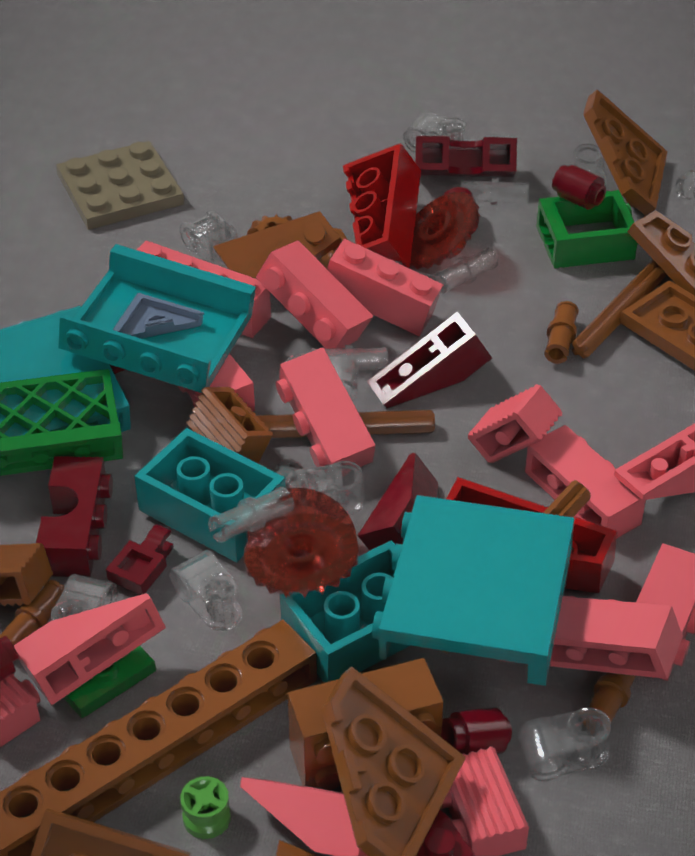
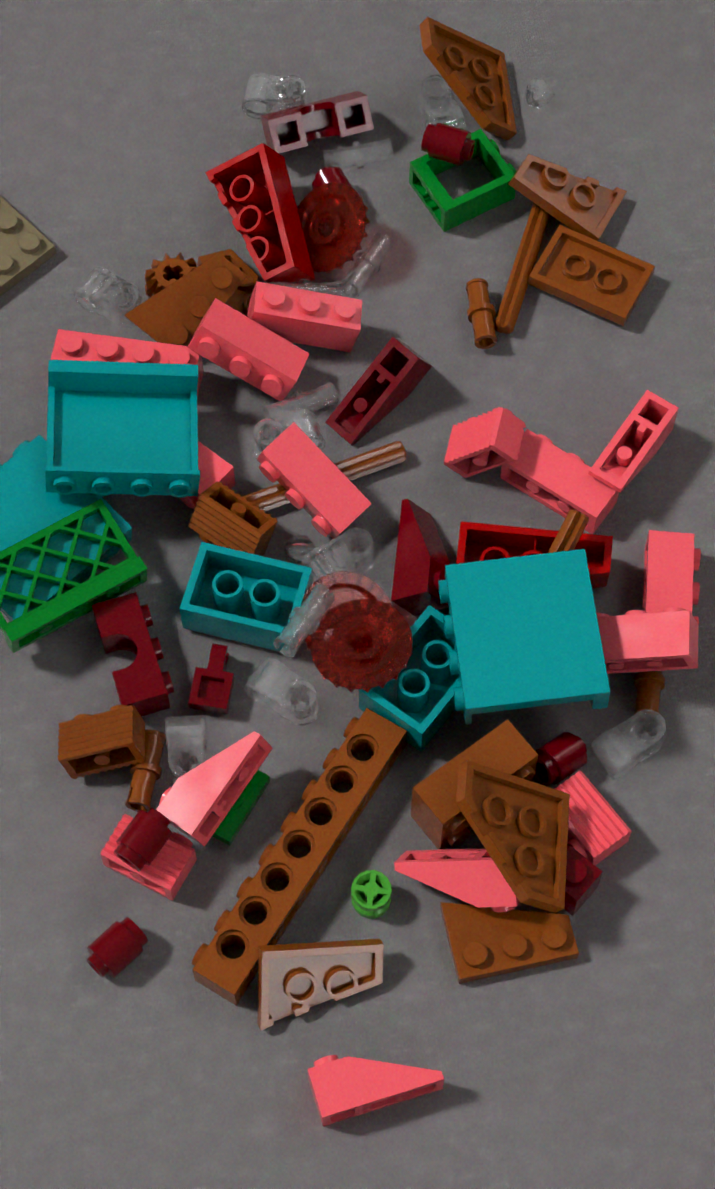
camera: 20 degrees left, 20 degrees up
(154, 316) = (116, 428): sand blue tile -> none

